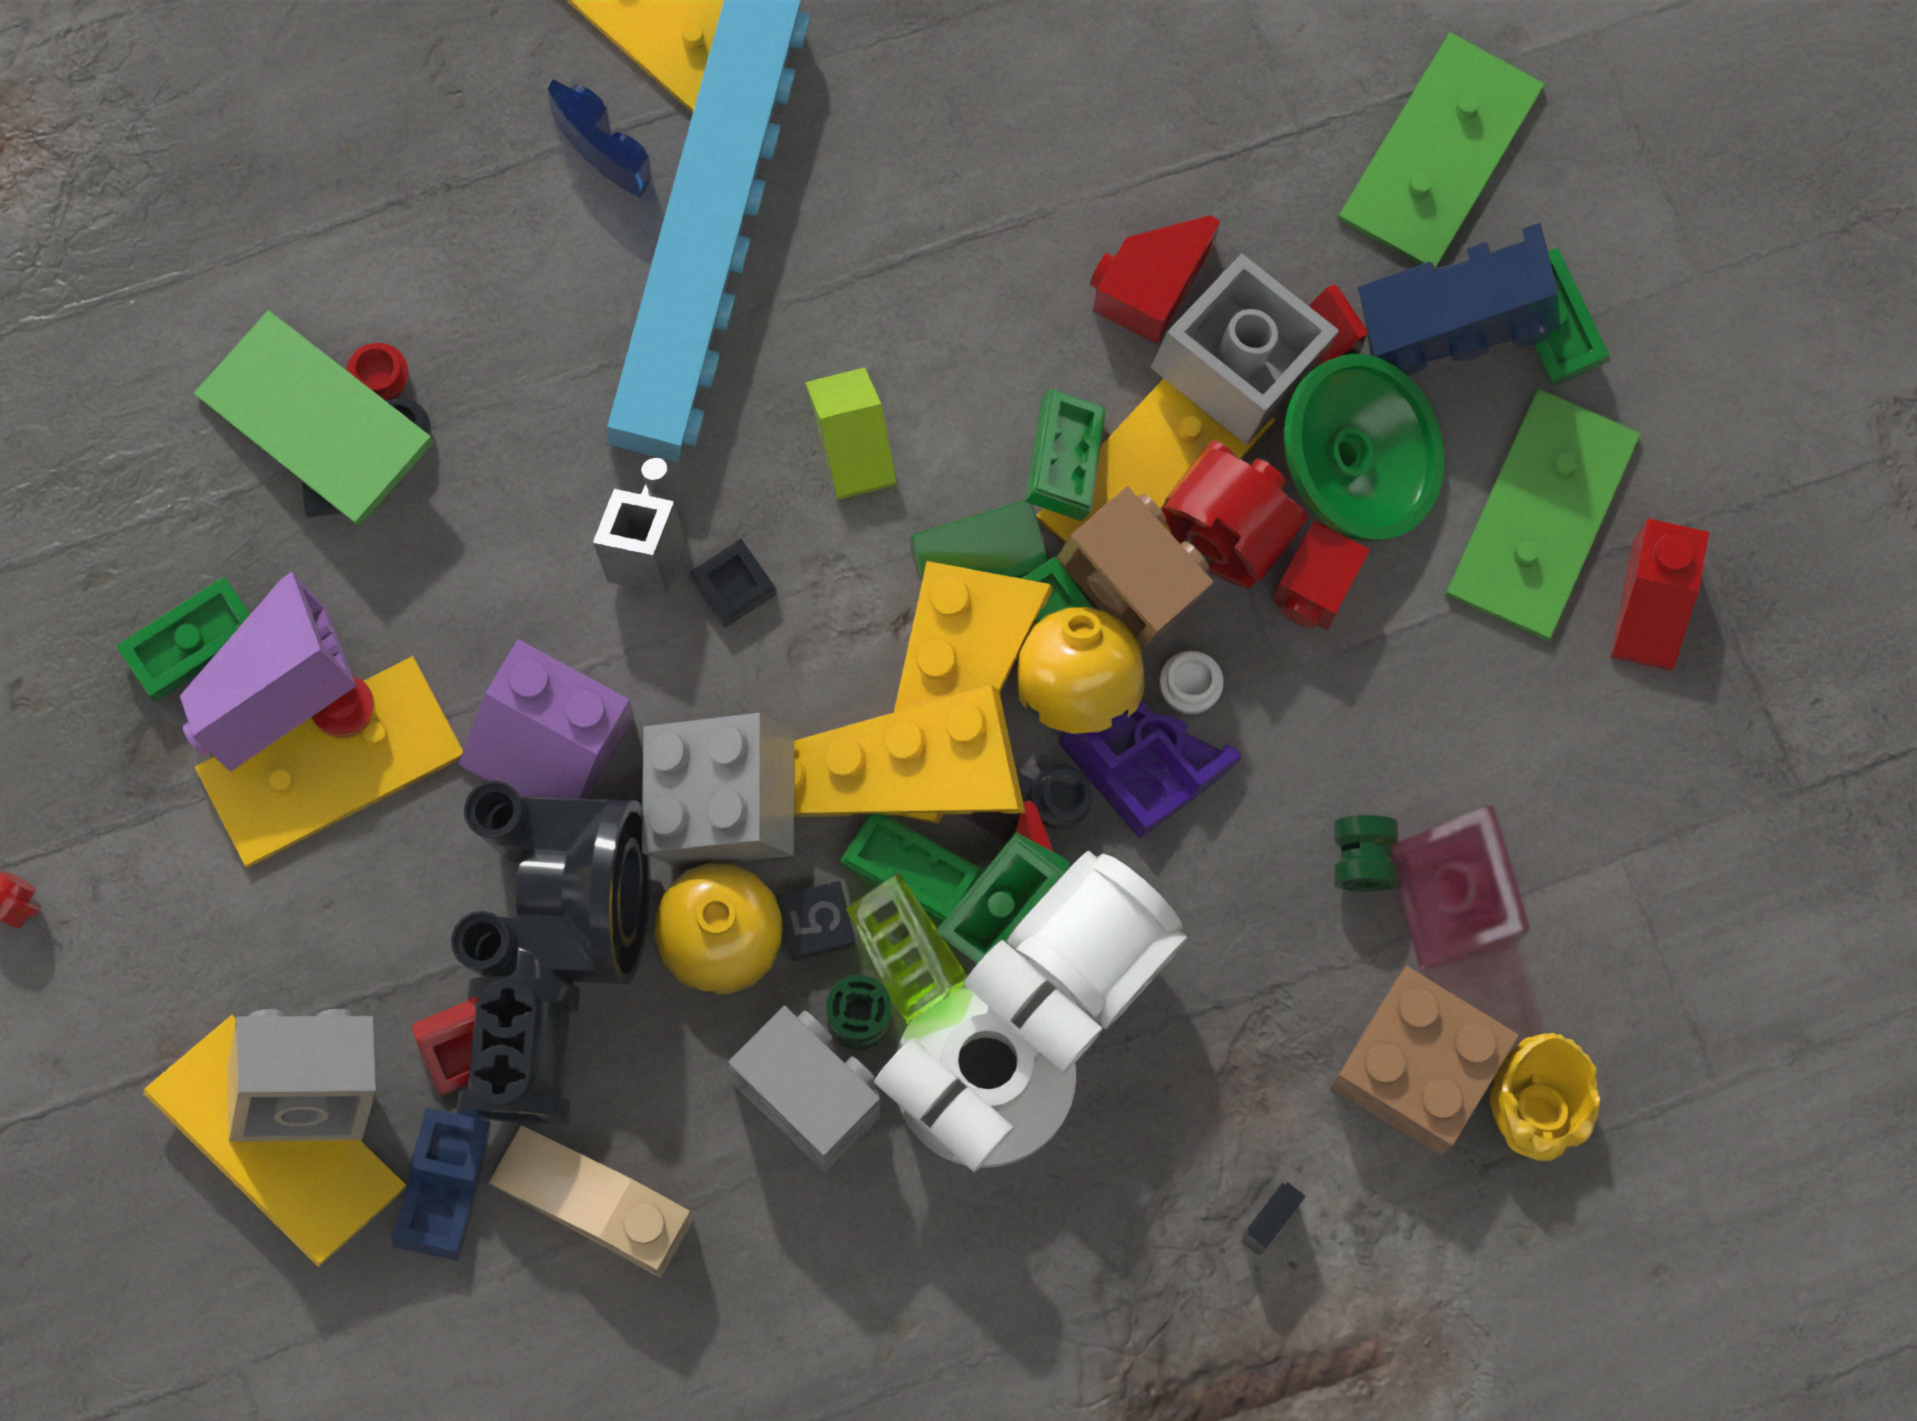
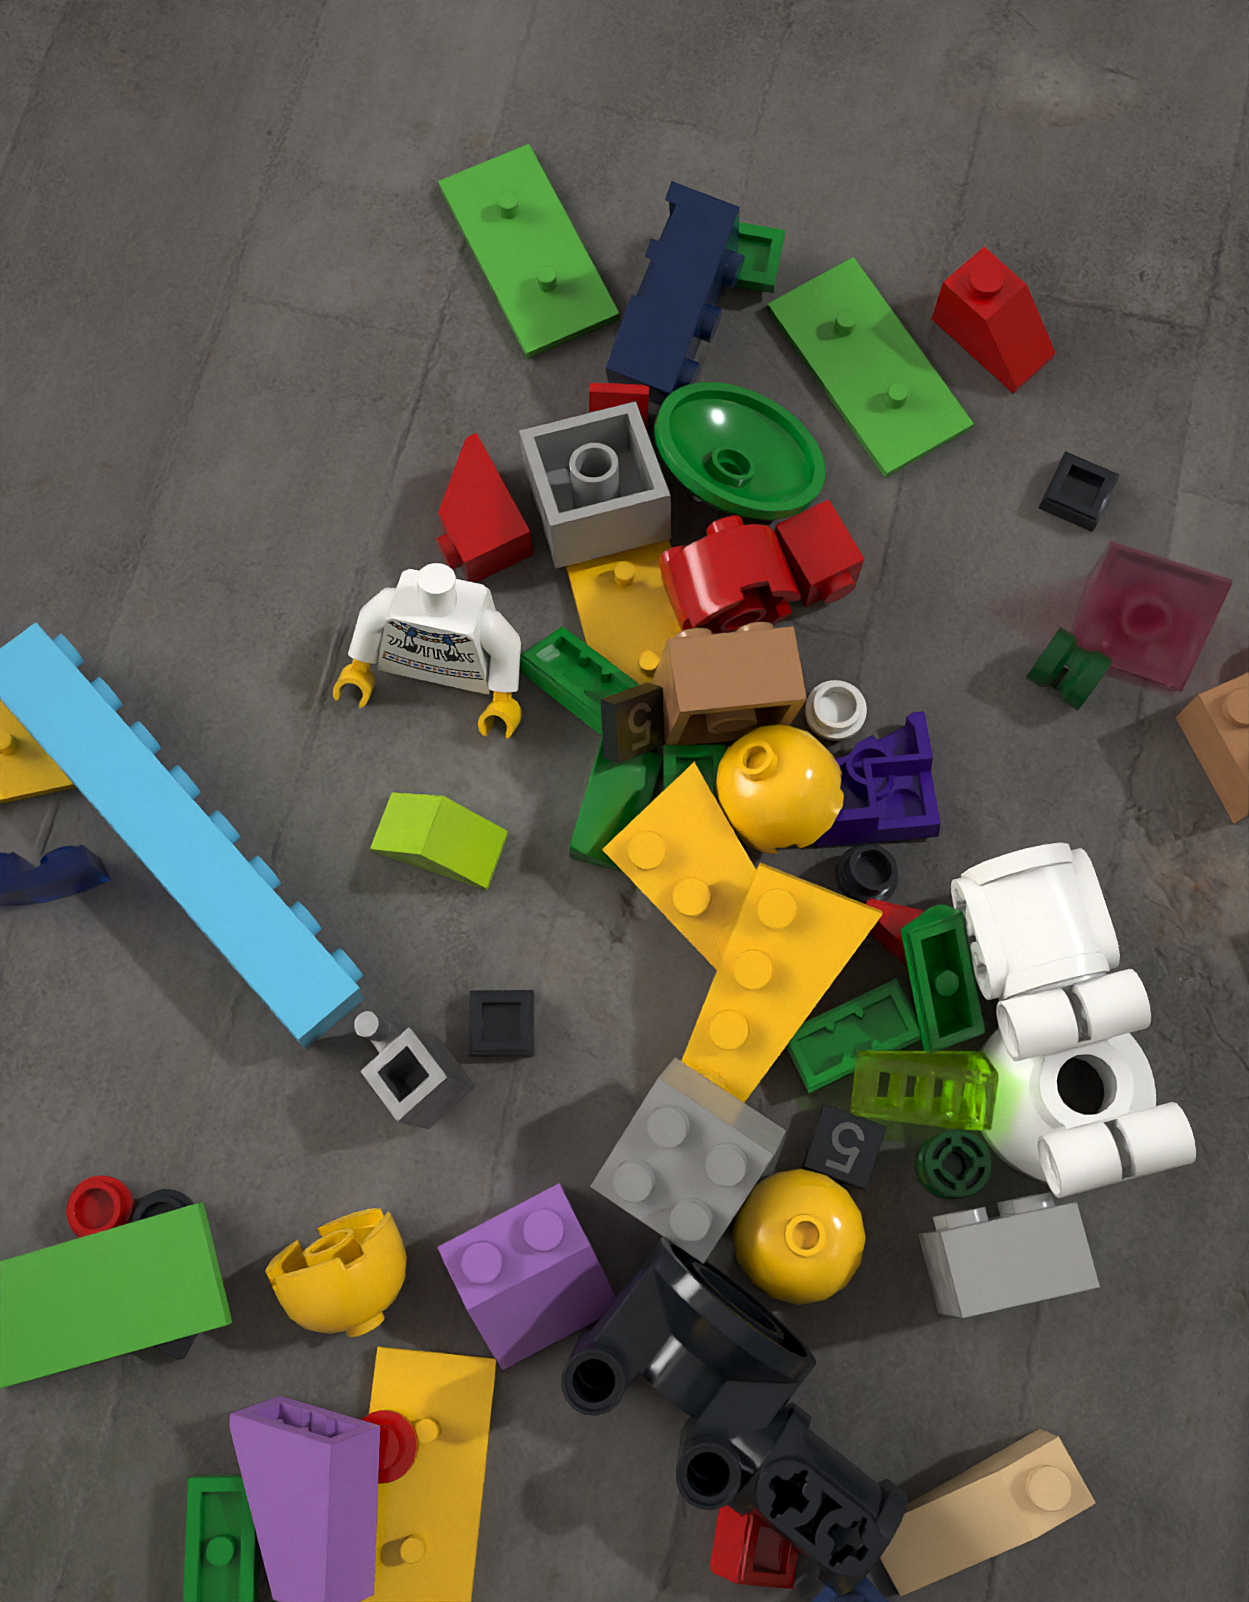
camera: 50 degrees left, 0 degrees up
(448, 587) = (343, 1276): none -> yellow cylinder
(1021, 312) = (441, 635): none -> white torso
(1050, 513) = (632, 722): none -> black tile
(1550, 768) = (1079, 491): none -> black tile

